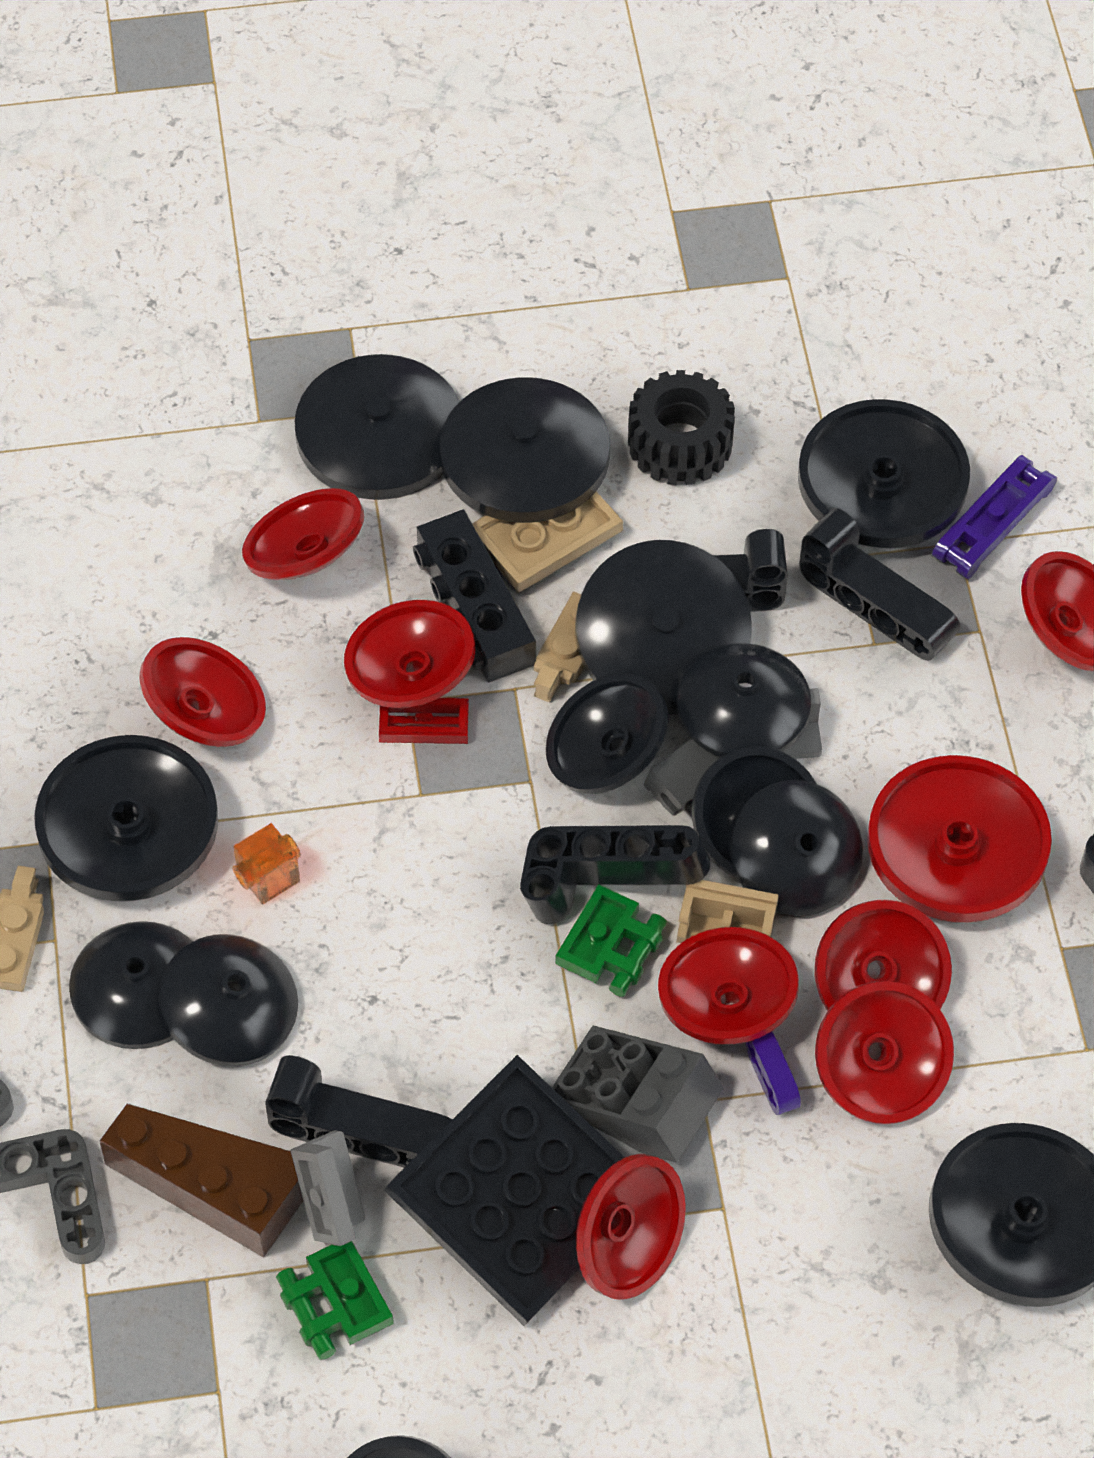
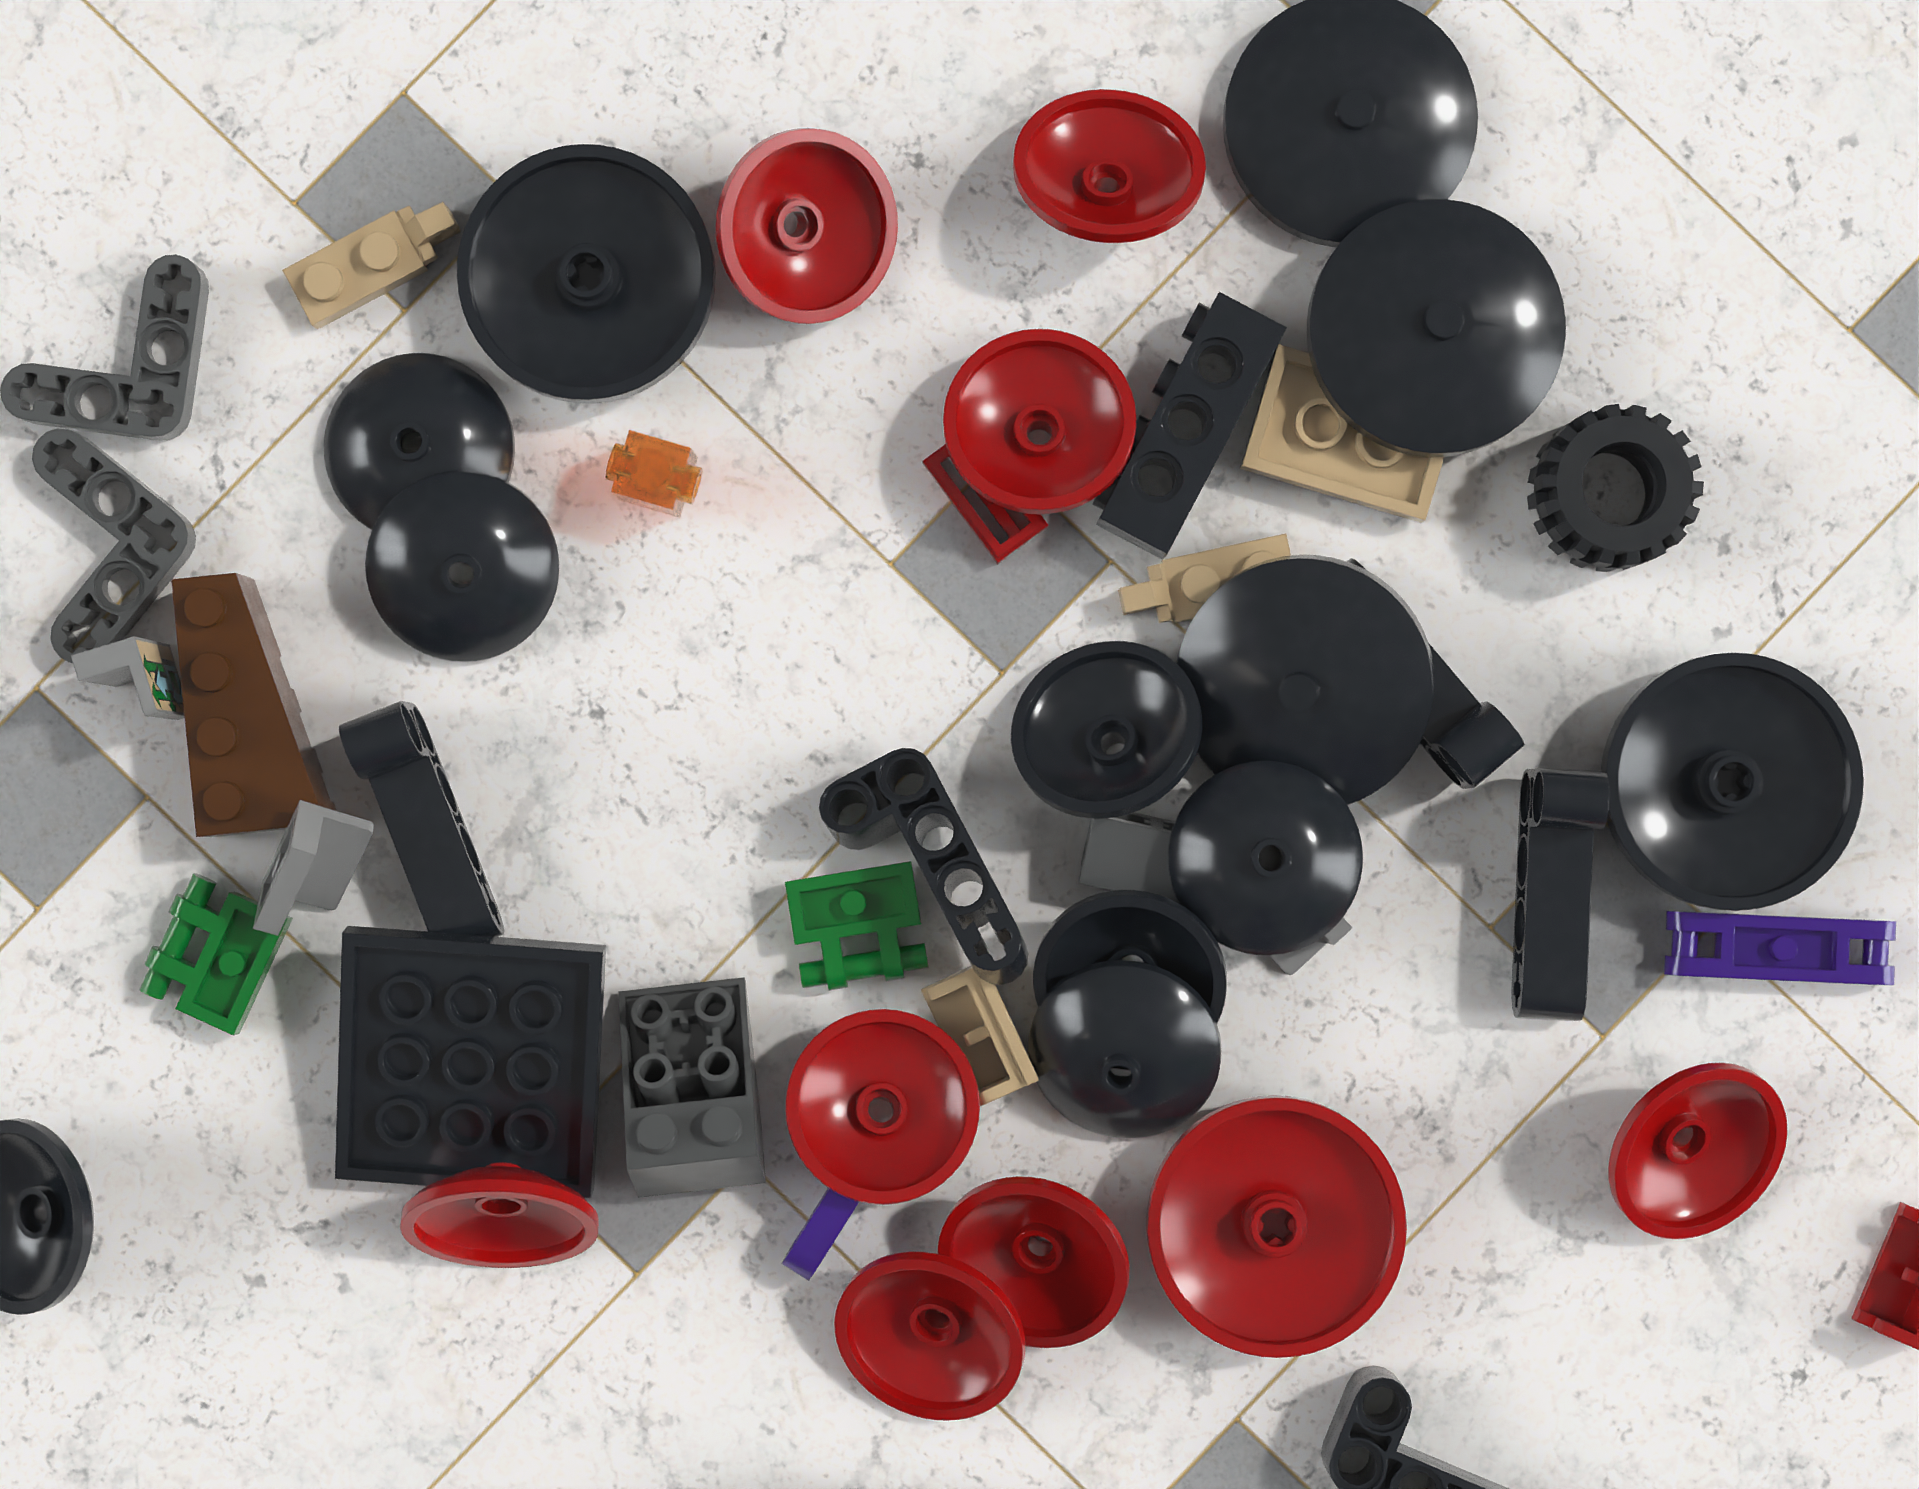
camera: 50 degrees right, 30 degrees up
(135, 1195) = (137, 661): none -> light grey panel

